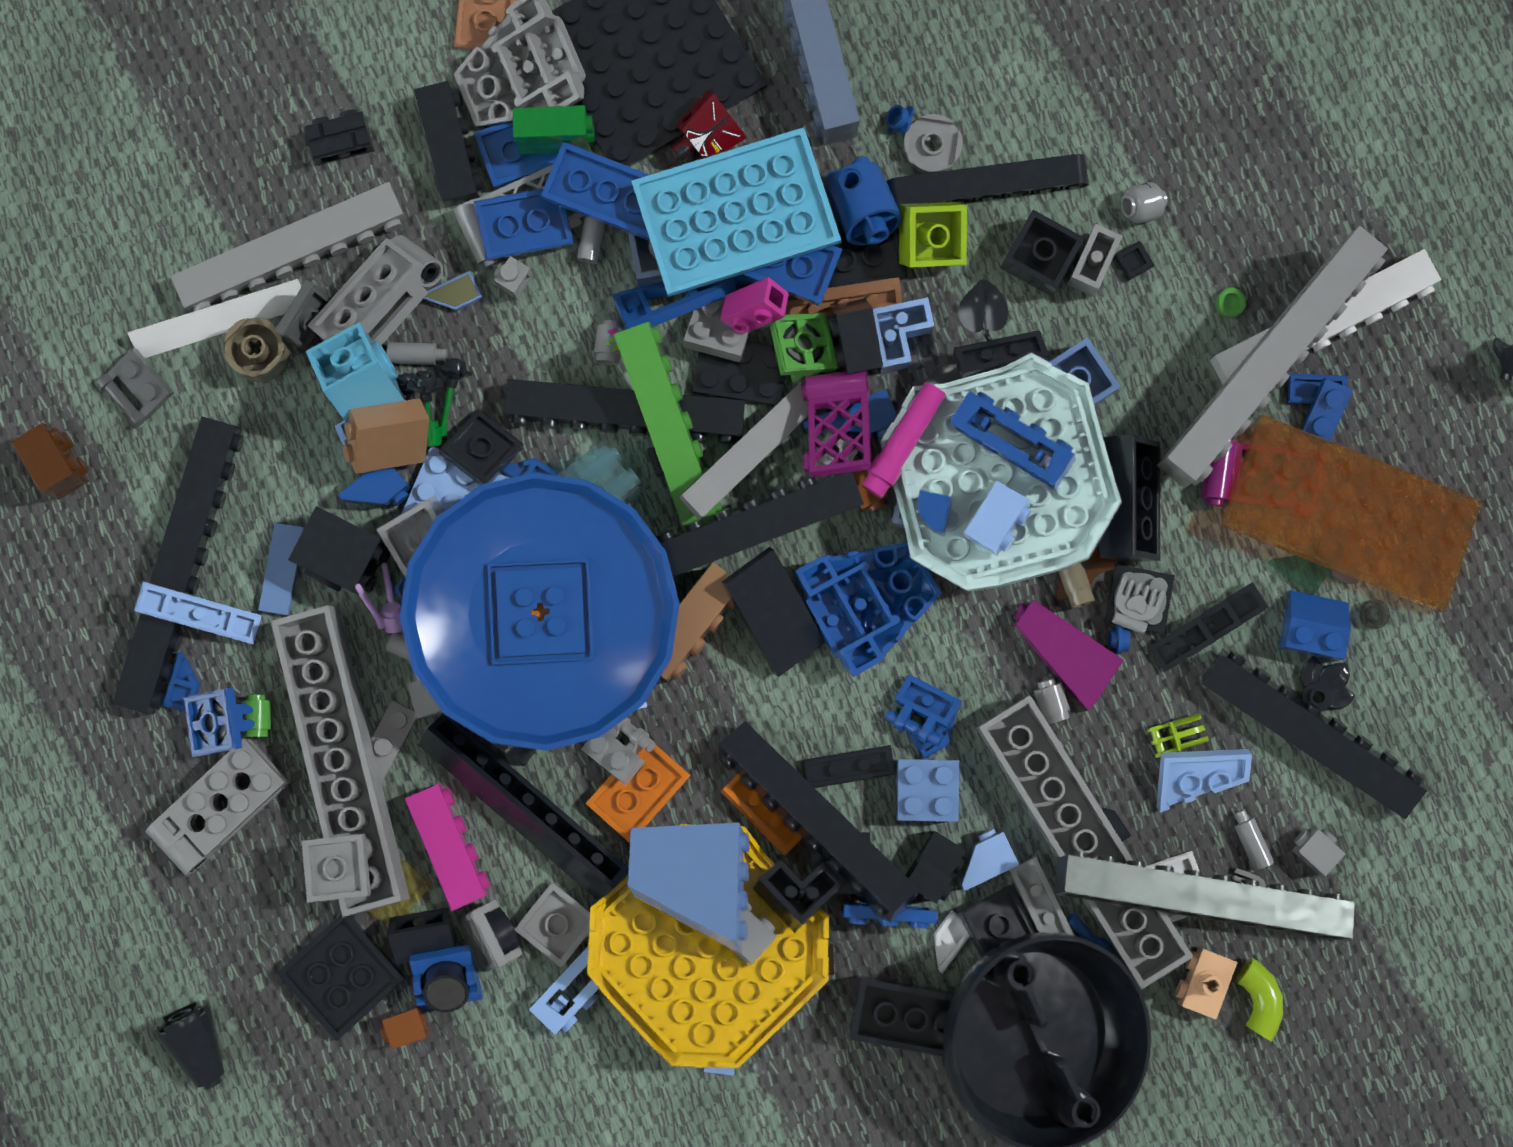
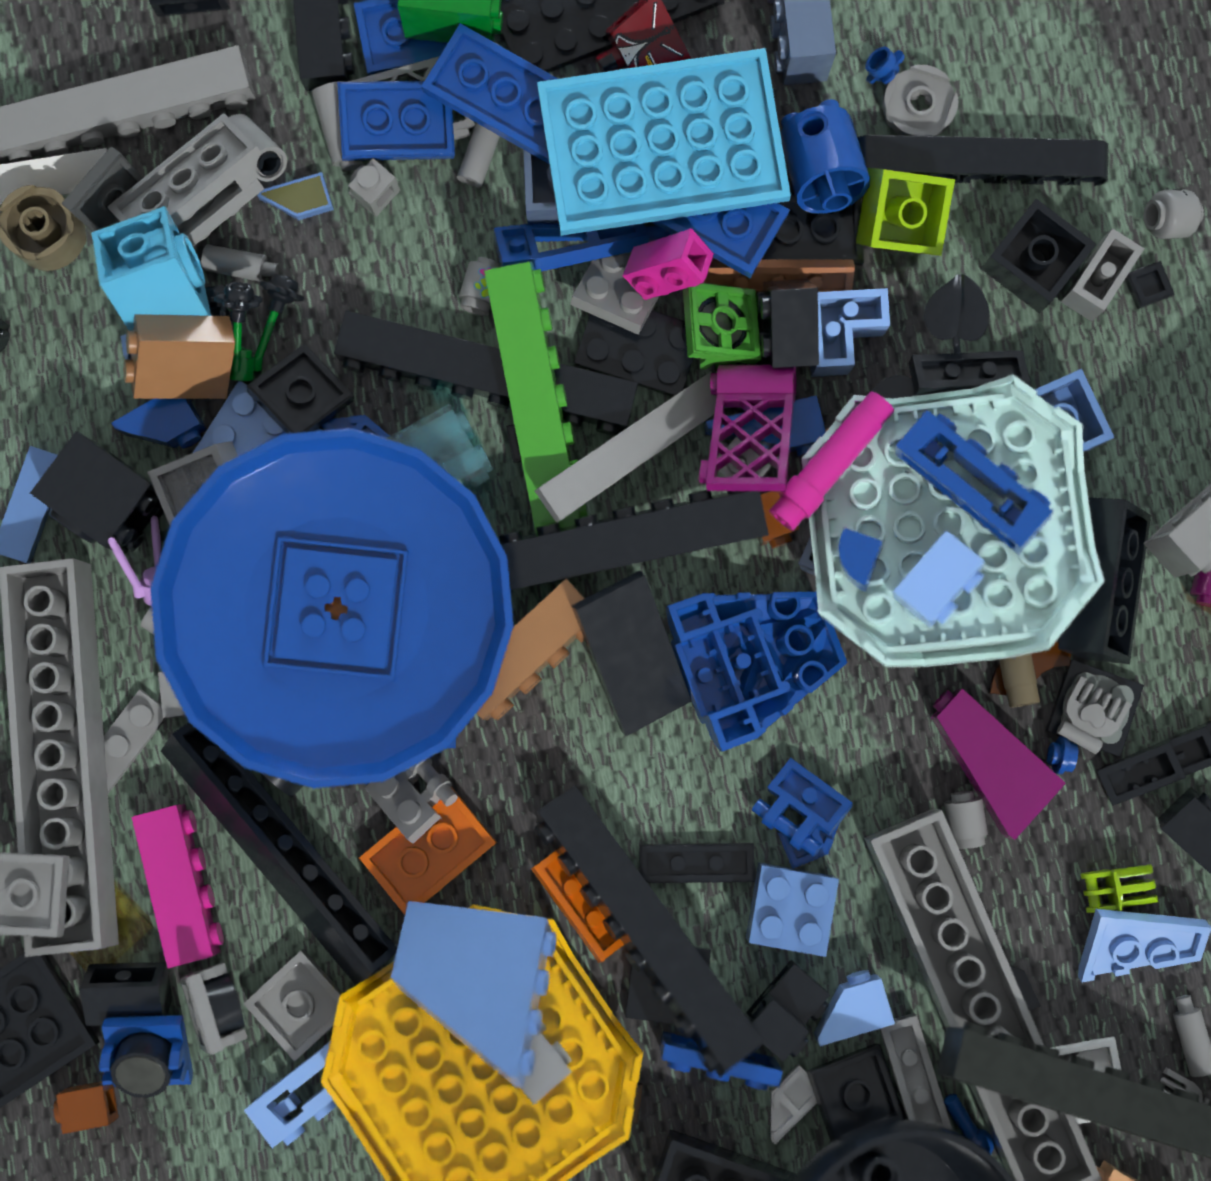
camera: 10 degrees right, 0 degrees up
(796, 899) = (607, 1028): black brick -> none

